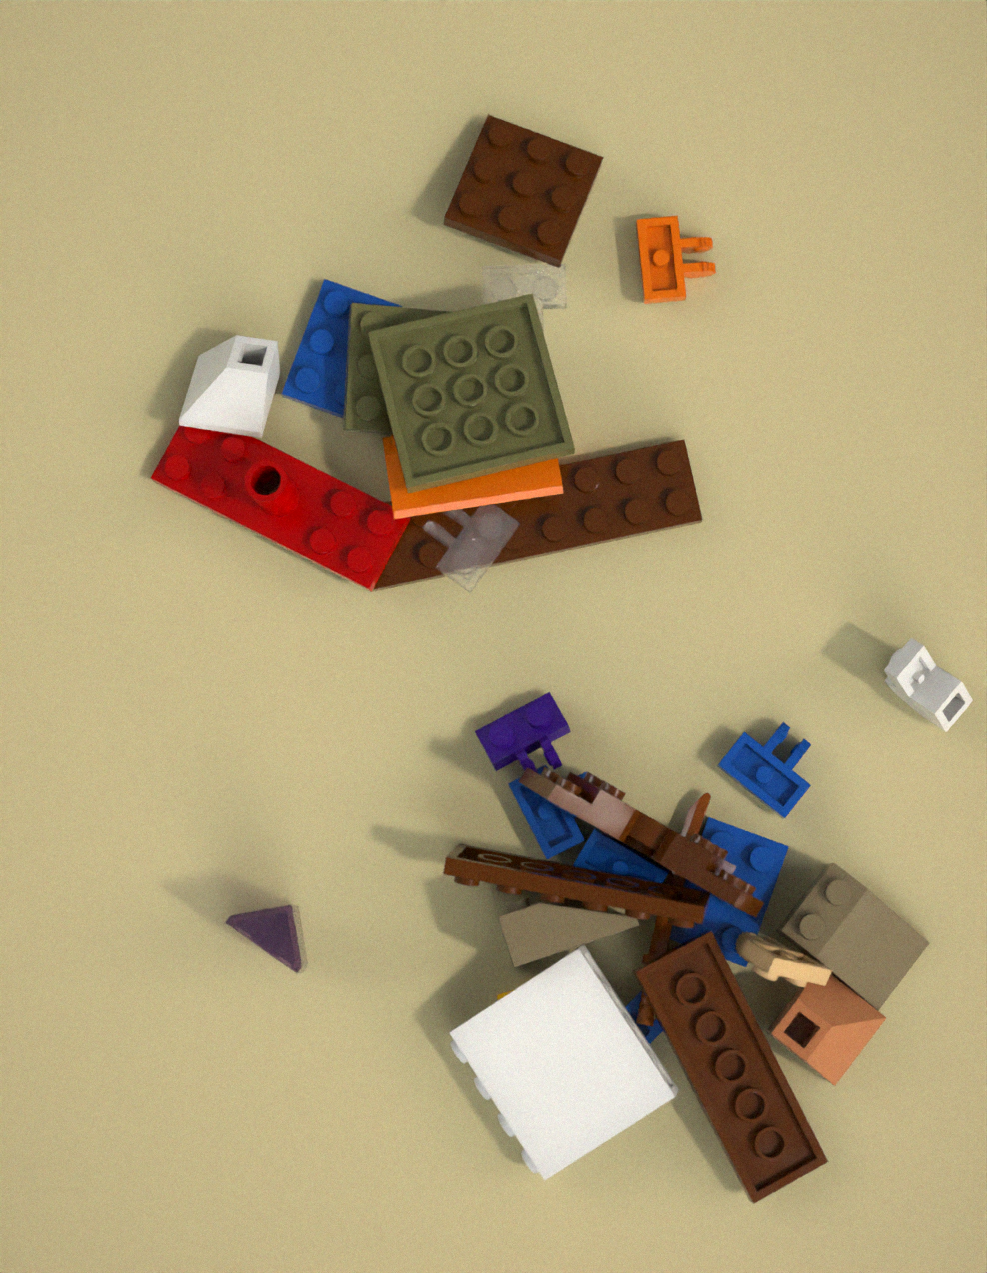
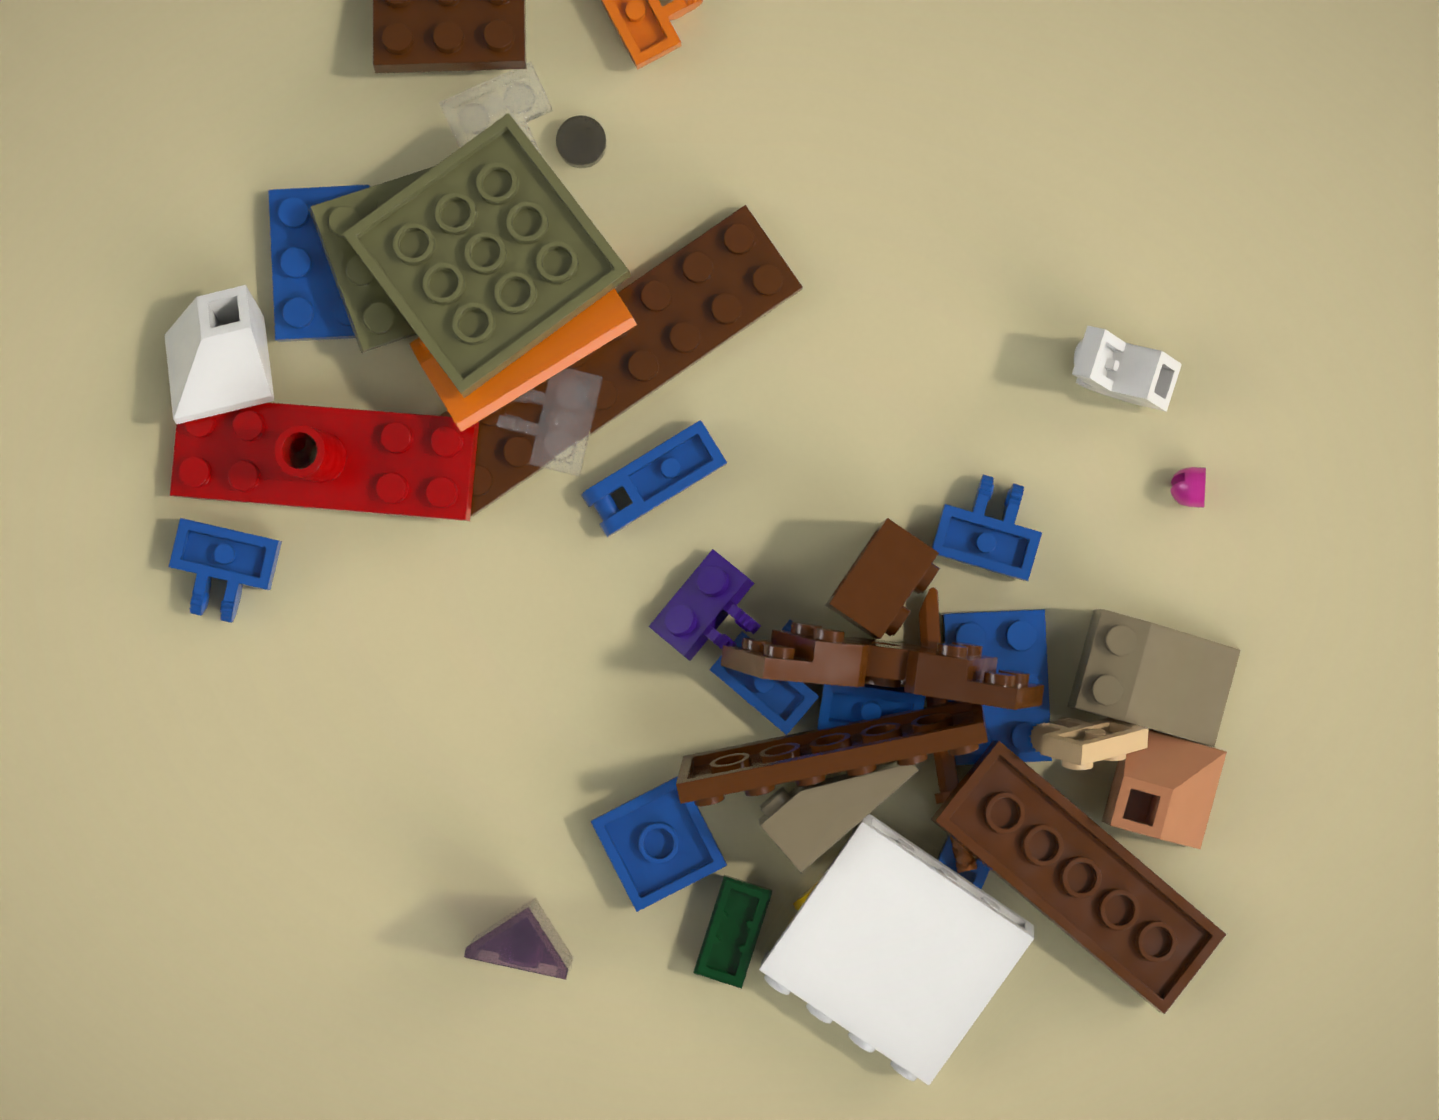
camera: 25 degrees left, 5 degrees up
(171, 540) = (226, 556): none -> blue hinge
(411, 902) = (658, 844): none -> blue plate
(441, 996) = (733, 931): none -> dark green plate
(528, 618) = (656, 477): none -> blue plate
(578, 340) = (581, 141): none -> clear smoke tile
(670, 768) = (883, 580): none -> reddish brown brick
(941, 798) = (1189, 487): none -> dark pink hinge

